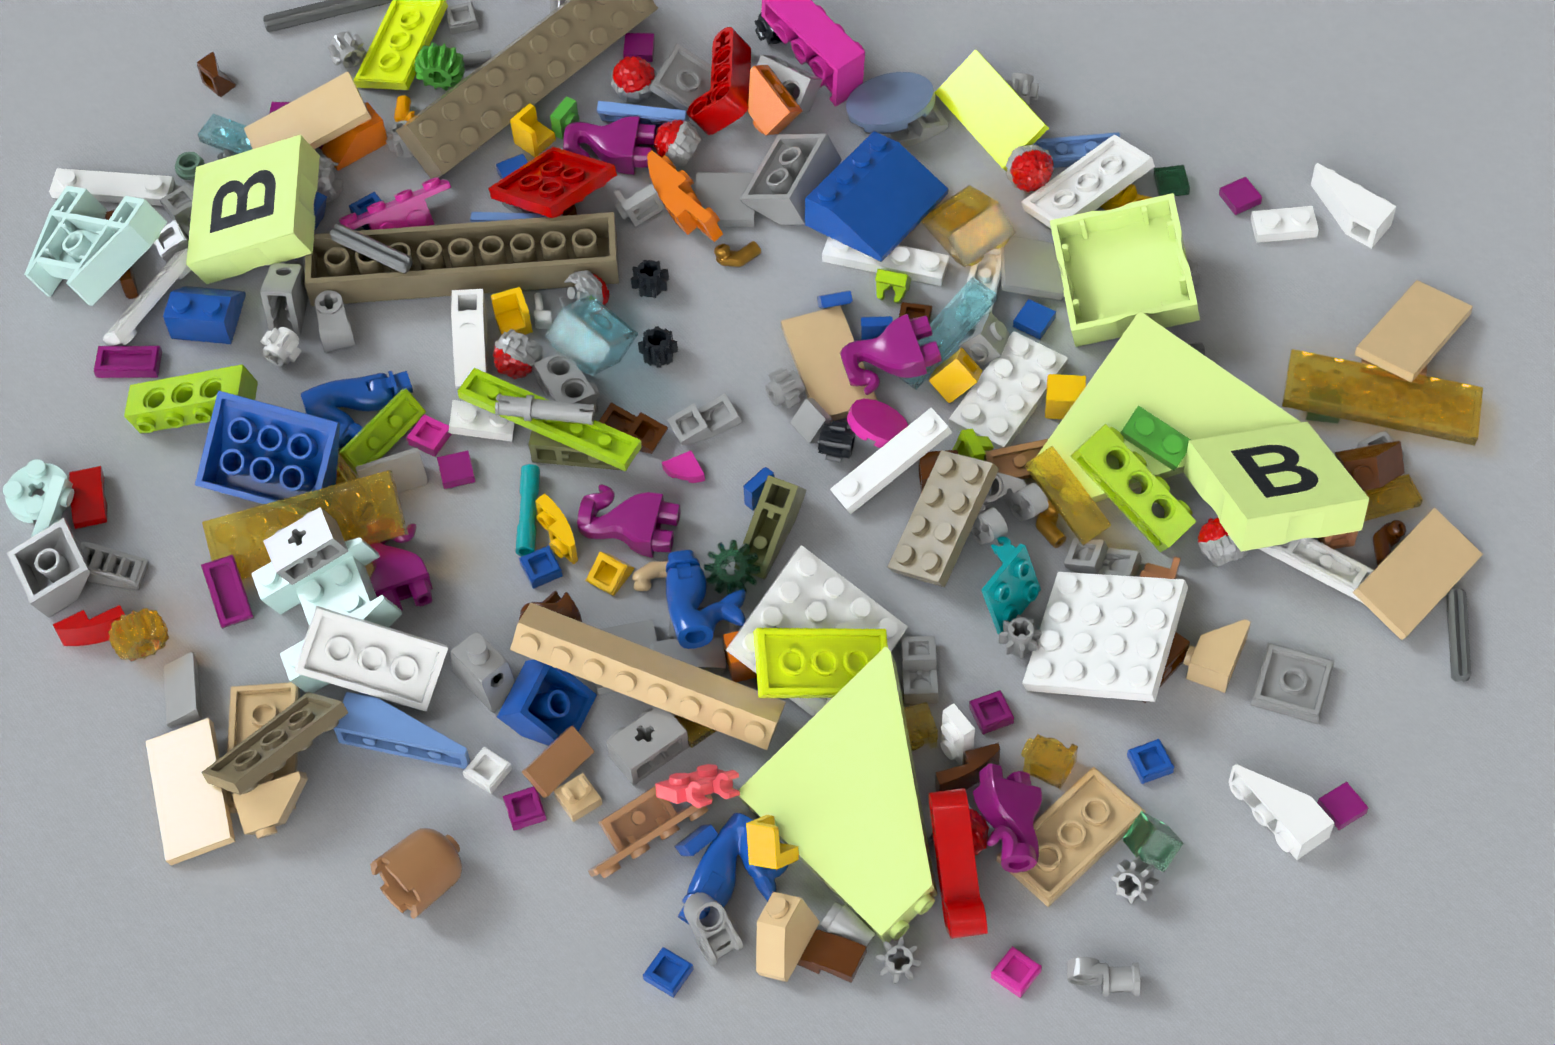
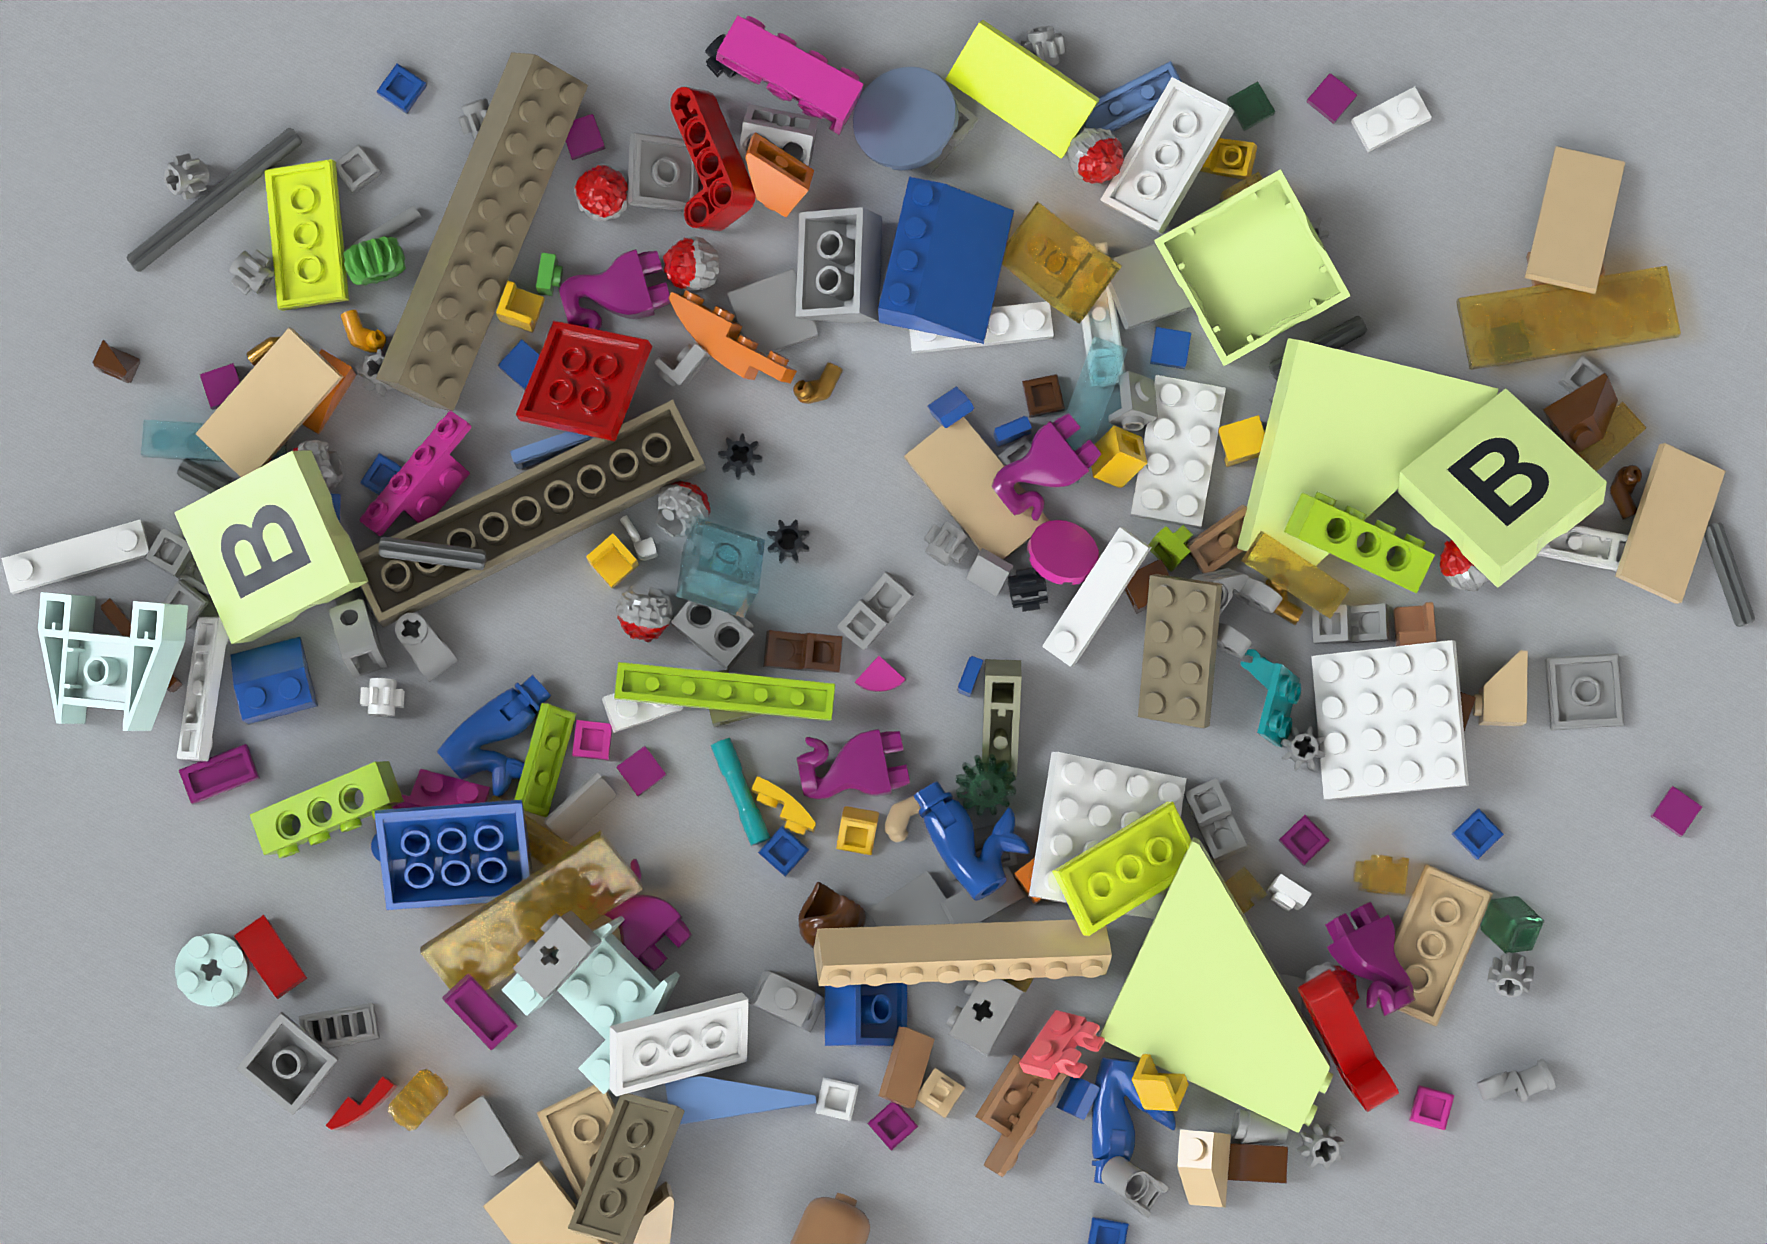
camera: 25 degrees left, 25 degrees up
(57, 498) = (252, 1008): light aqua plate -> none
(186, 165) = (144, 489): sand green plate -> none
(469, 332) = (584, 613): white slope -> none
(544, 409) = (721, 692): light grey pin -> none
(648, 115) = (634, 238): medium blue tile -> none
(887, 279) = (1004, 359): lime tile -> none
(968, 774) = (1314, 912): reddish brown slope -> none
(1156, 438) = (1362, 474): bright green plate -> none
(1288, 813) = (1633, 846): white slope -> none
(1353, 207) = (1464, 77): white slope -> none

